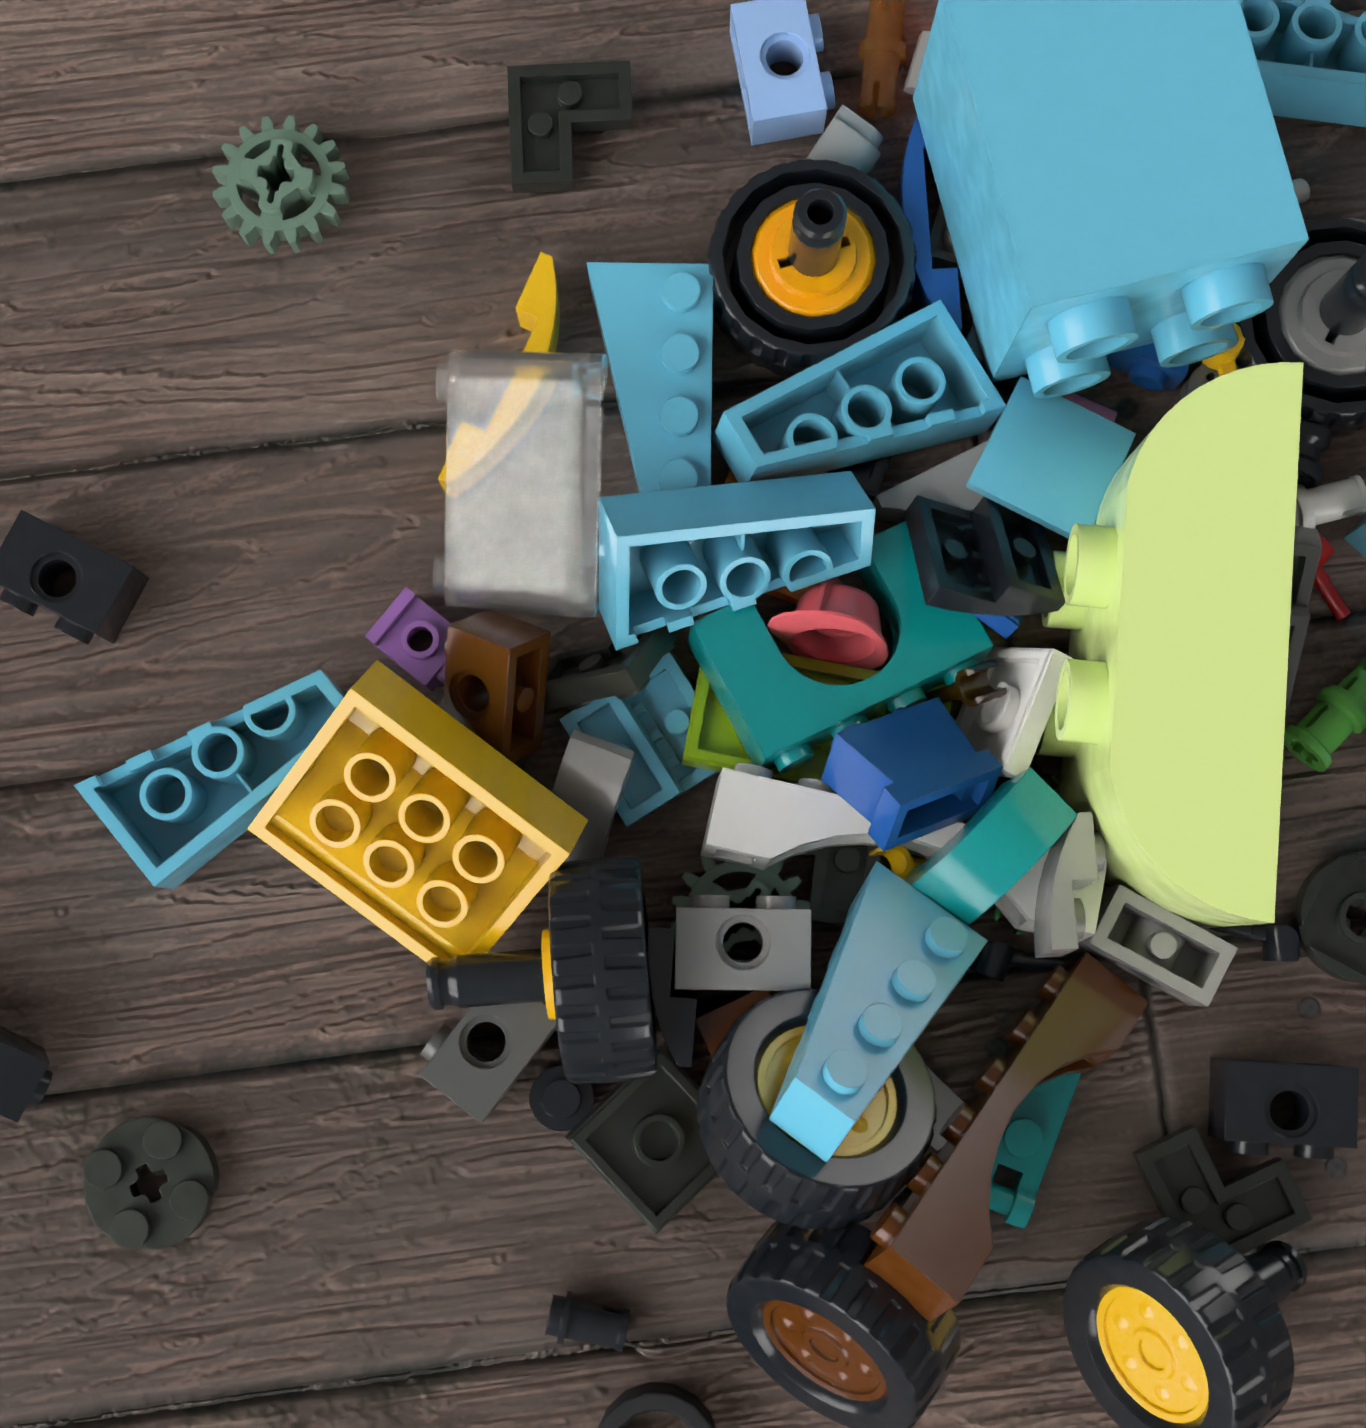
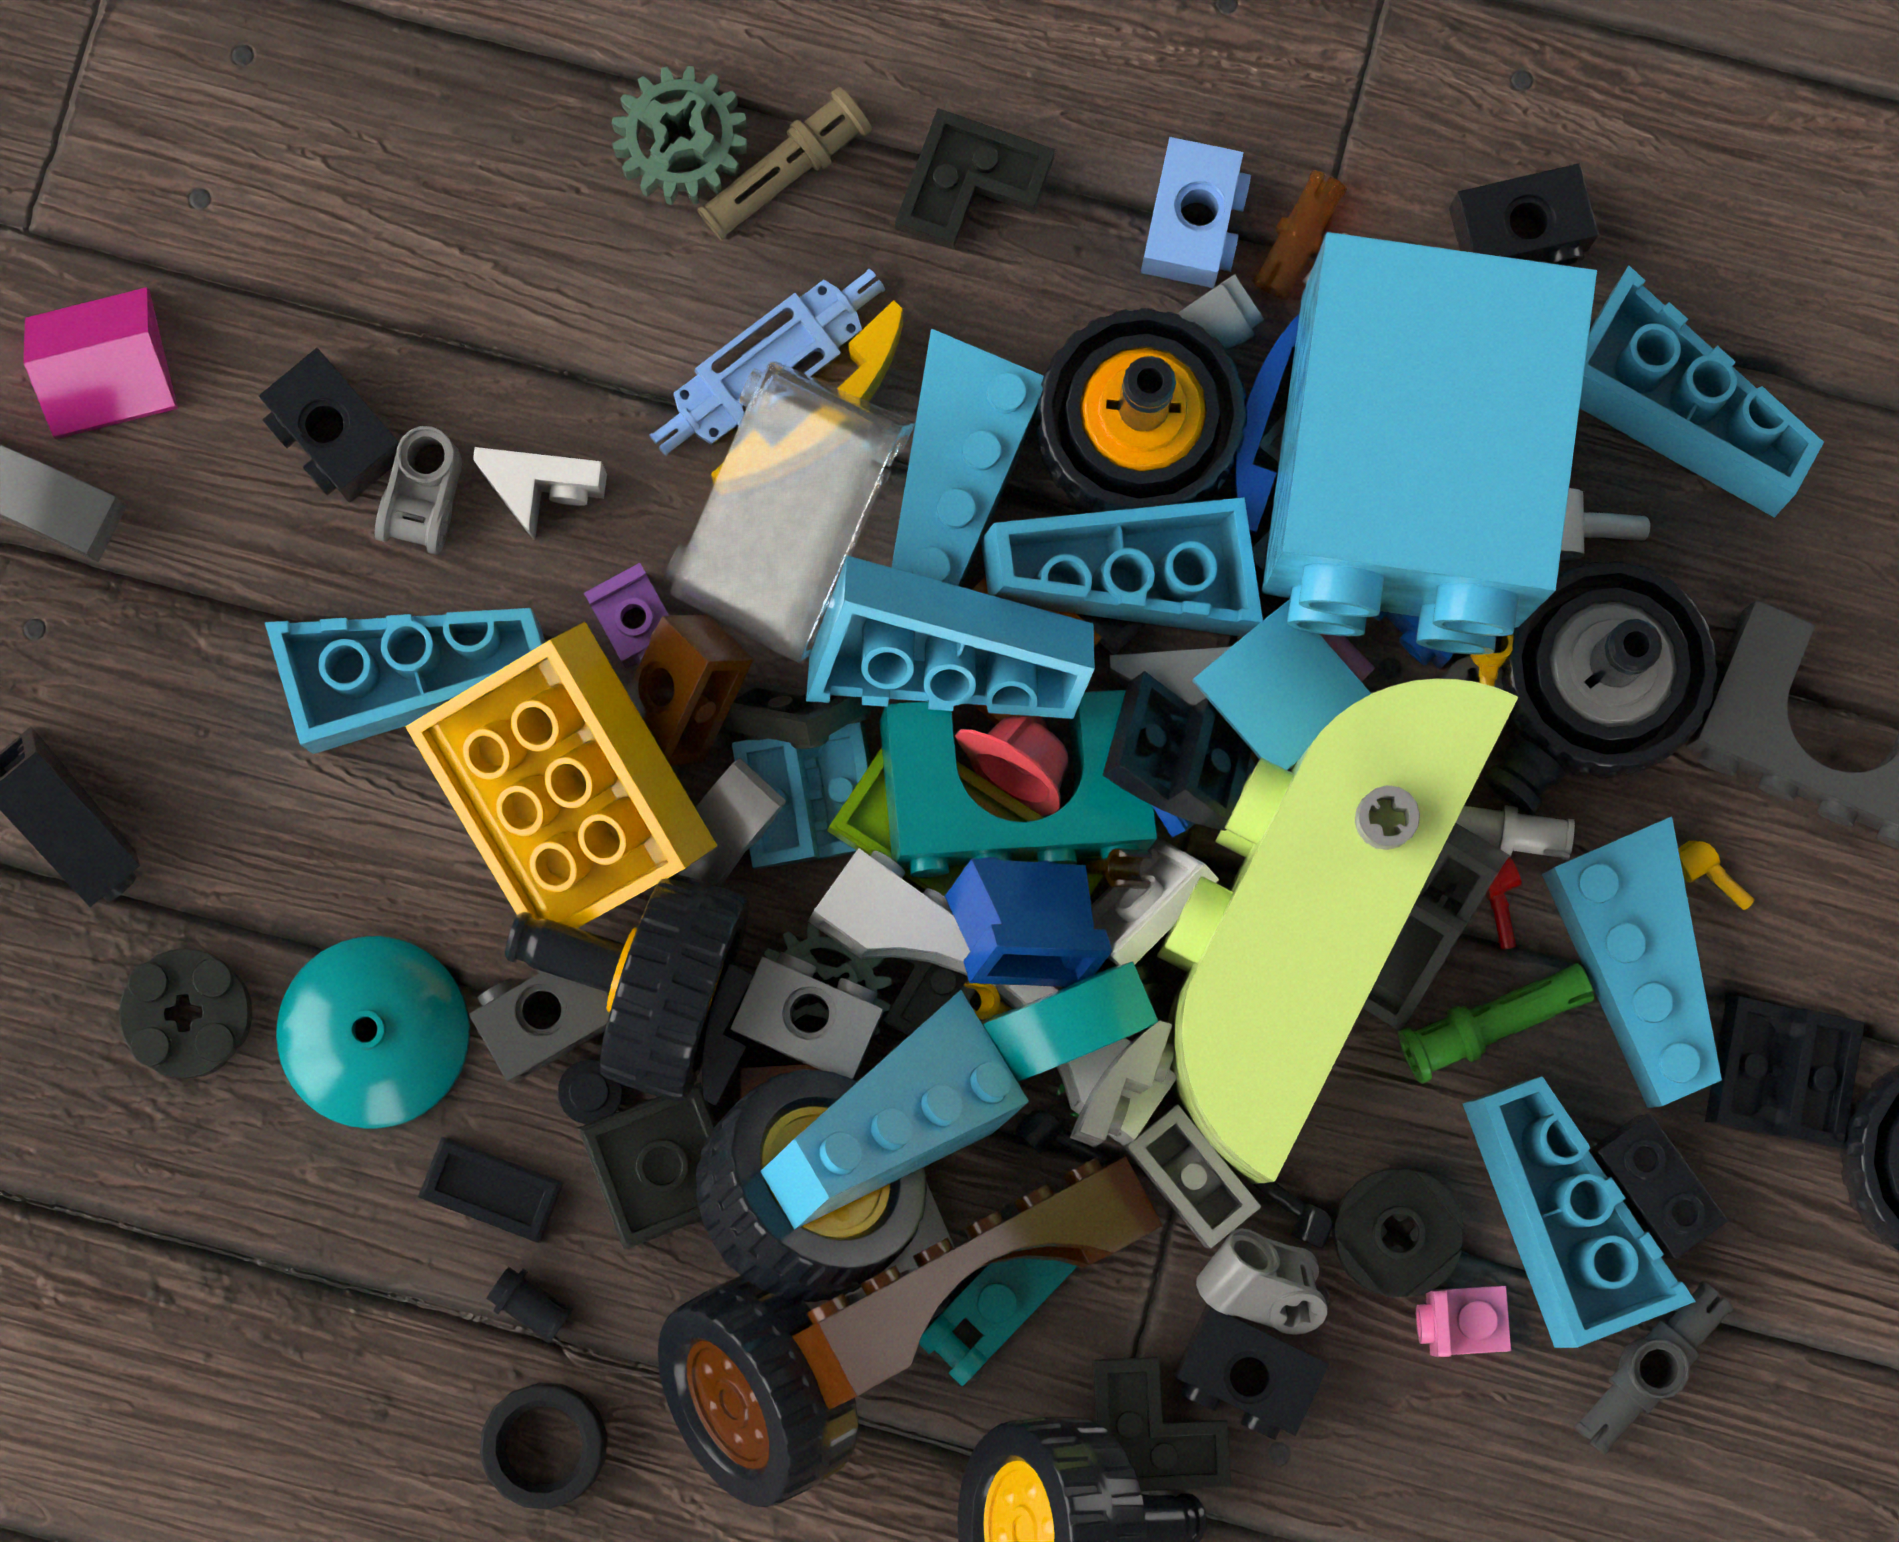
camera: 20 degrees right, 0 degrees up
(173, 608) = (419, 495): none -> light grey piece
(265, 551) = (523, 477): none -> white slope
(380, 1119) = (417, 1042): none -> teal dish
(411, 152) = (724, 214): none -> dark tan pin
(480, 305) = (820, 323): none -> light blue piece
(506, 1228) = (491, 1189): none -> black tile
(1236, 506) = (1400, 802): none -> light grey bush
(1264, 1017) = (1261, 1278): none -> light grey piece

